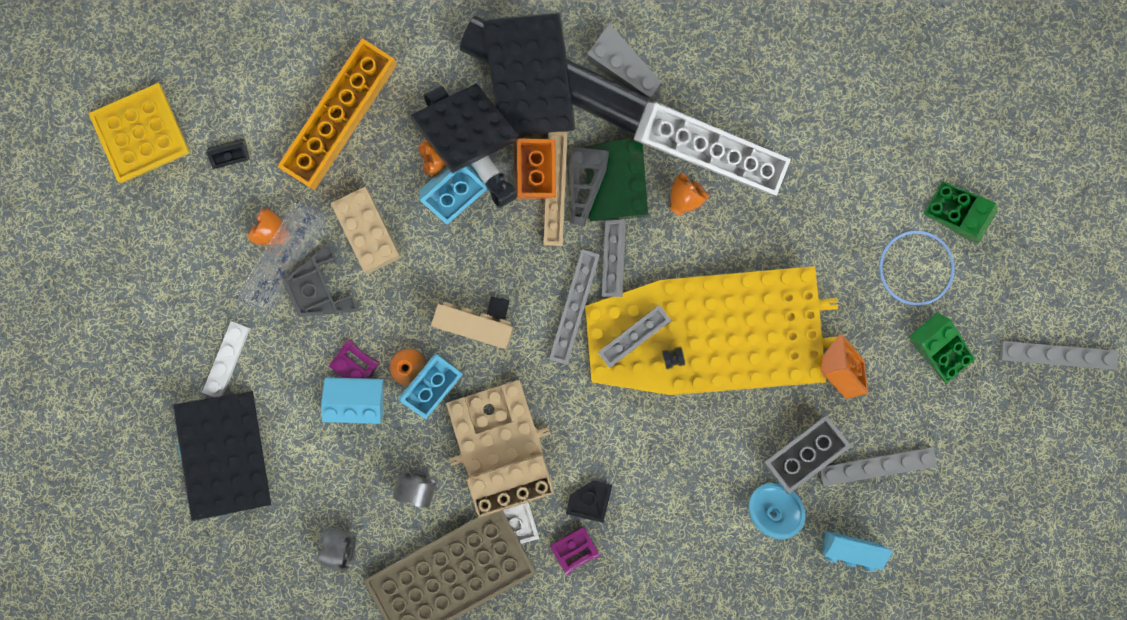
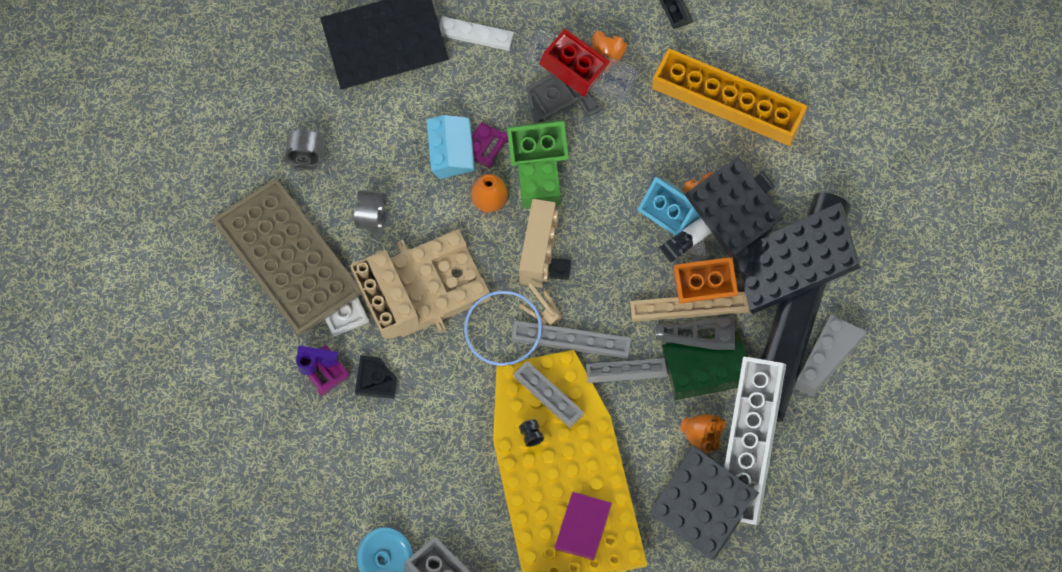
camera: 85 degrees right, 20 degrees down
(280, 263) = (574, 62): none -> red slope
(363, 312) = (537, 142): none -> bright green brick
(366, 230) = (619, 137): tan brick -> none
(407, 316) = (539, 182): none -> bright green brick
(430, 386) = (474, 210): medium azure slope -> none
(547, 324) = (551, 314): none -> tan plant
(556, 335) = (494, 293): none -> light blue piece
(565, 560) = (324, 357): none -> dark purple plate
(762, 203) = (704, 502): none -> black plate
(774, 320) = (583, 526): none -> magenta tile

